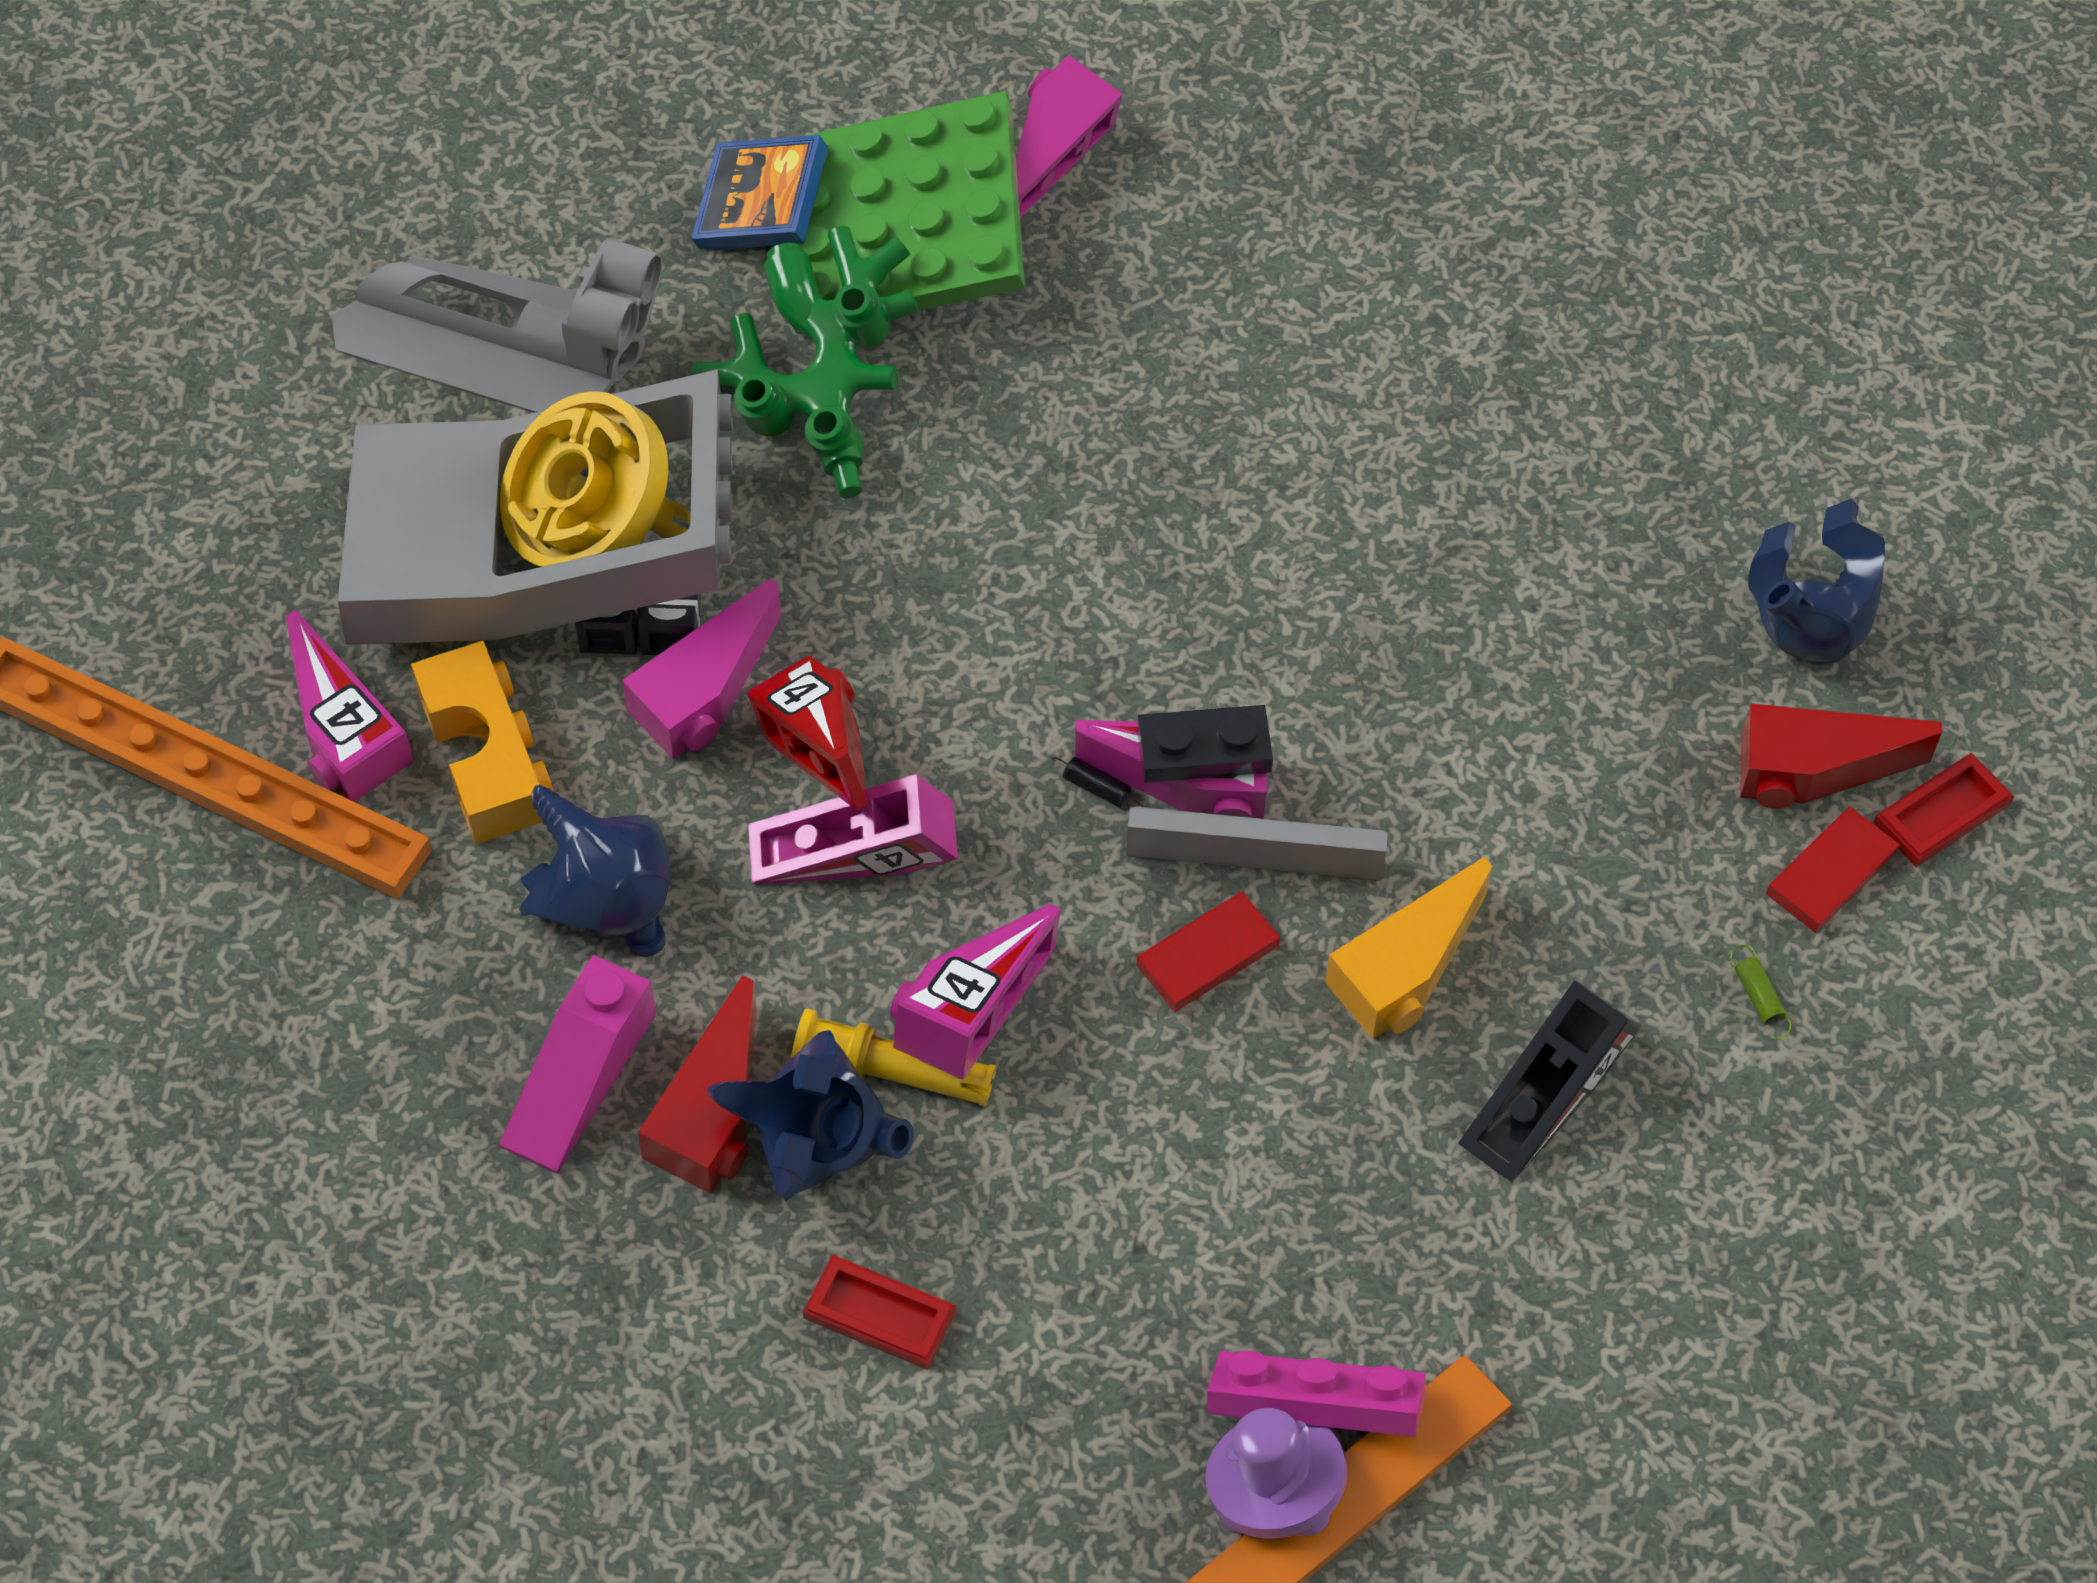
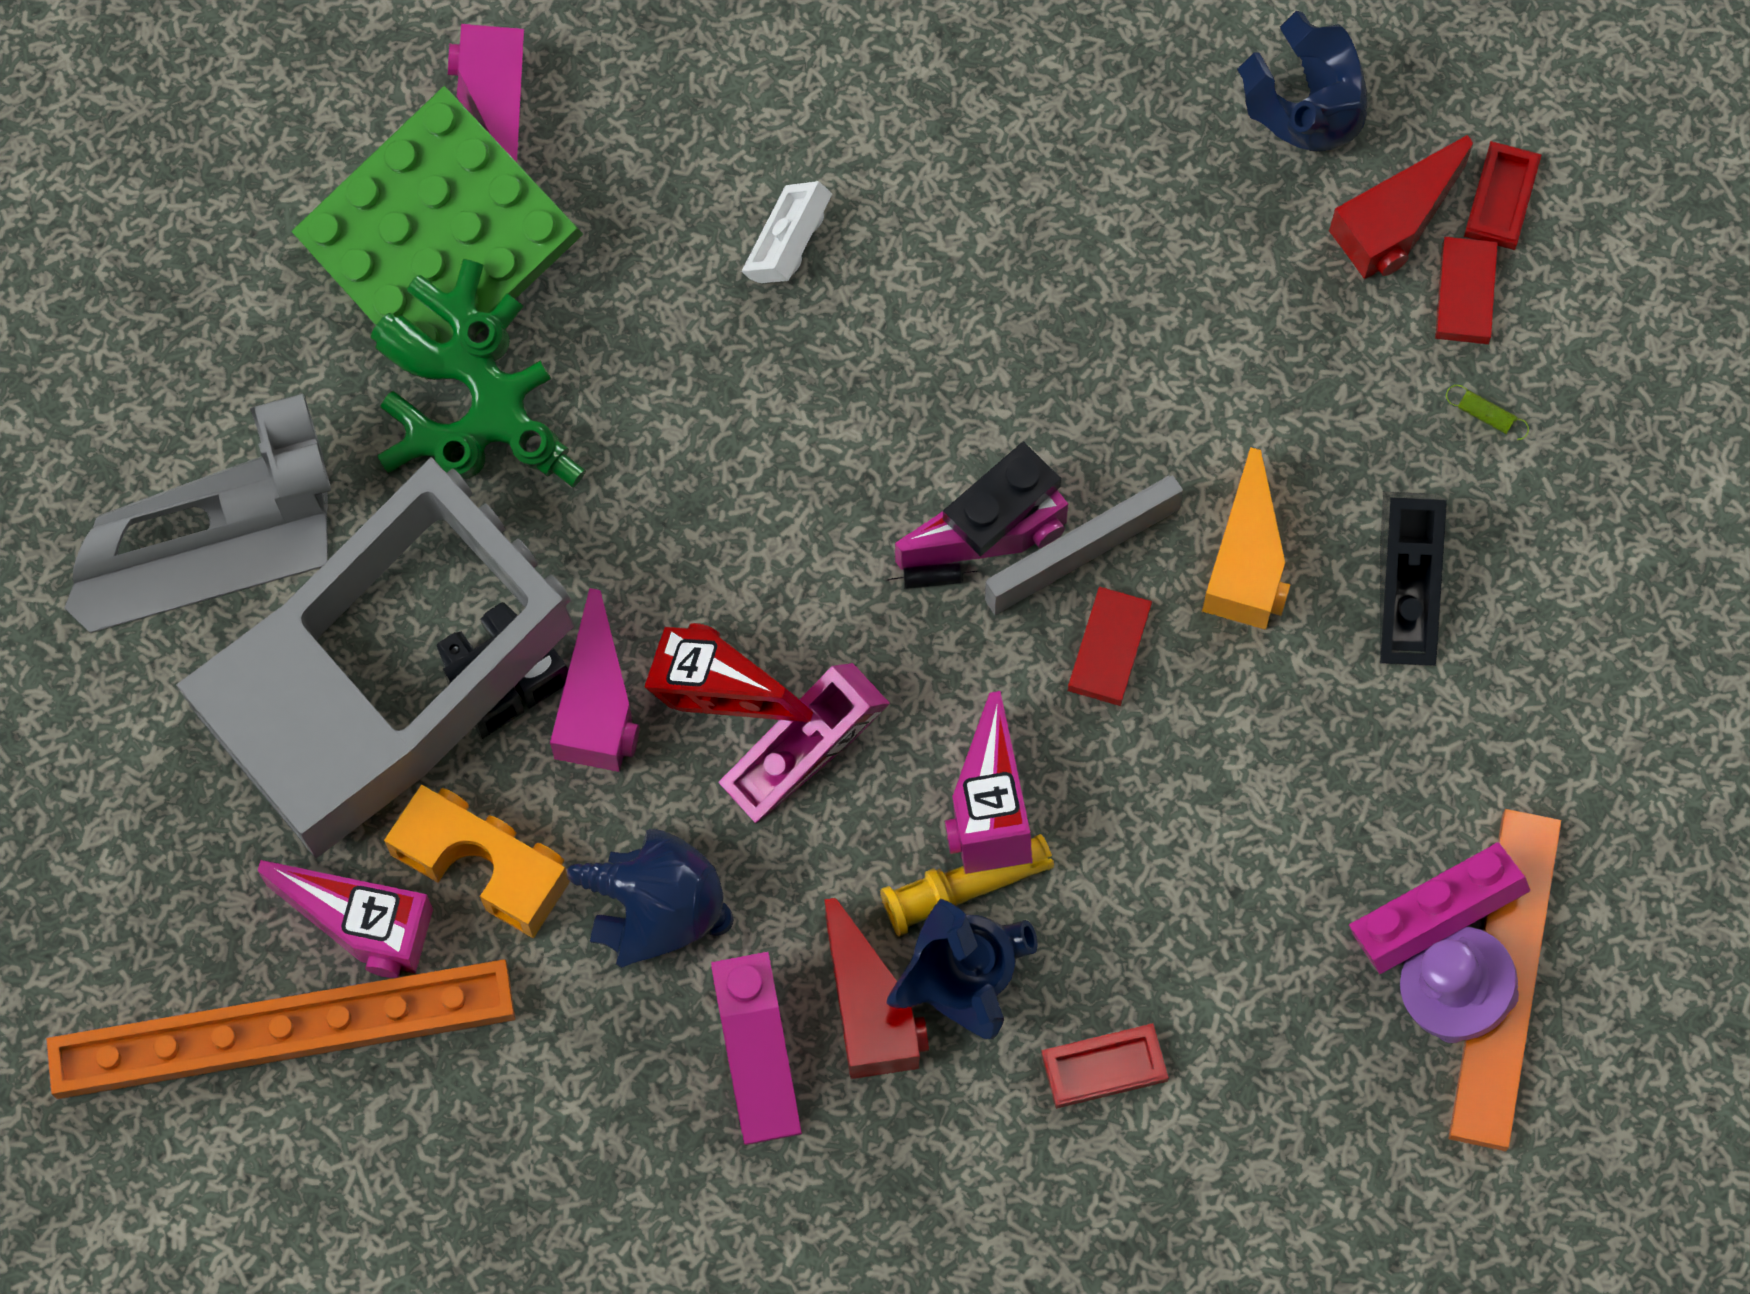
camera: 35 degrees left, 10 degrees up
(609, 510) = (442, 604): yellow piece -> none
(760, 192) = (314, 288): tile -> none
(1235, 402) = (787, 232): none -> white plate

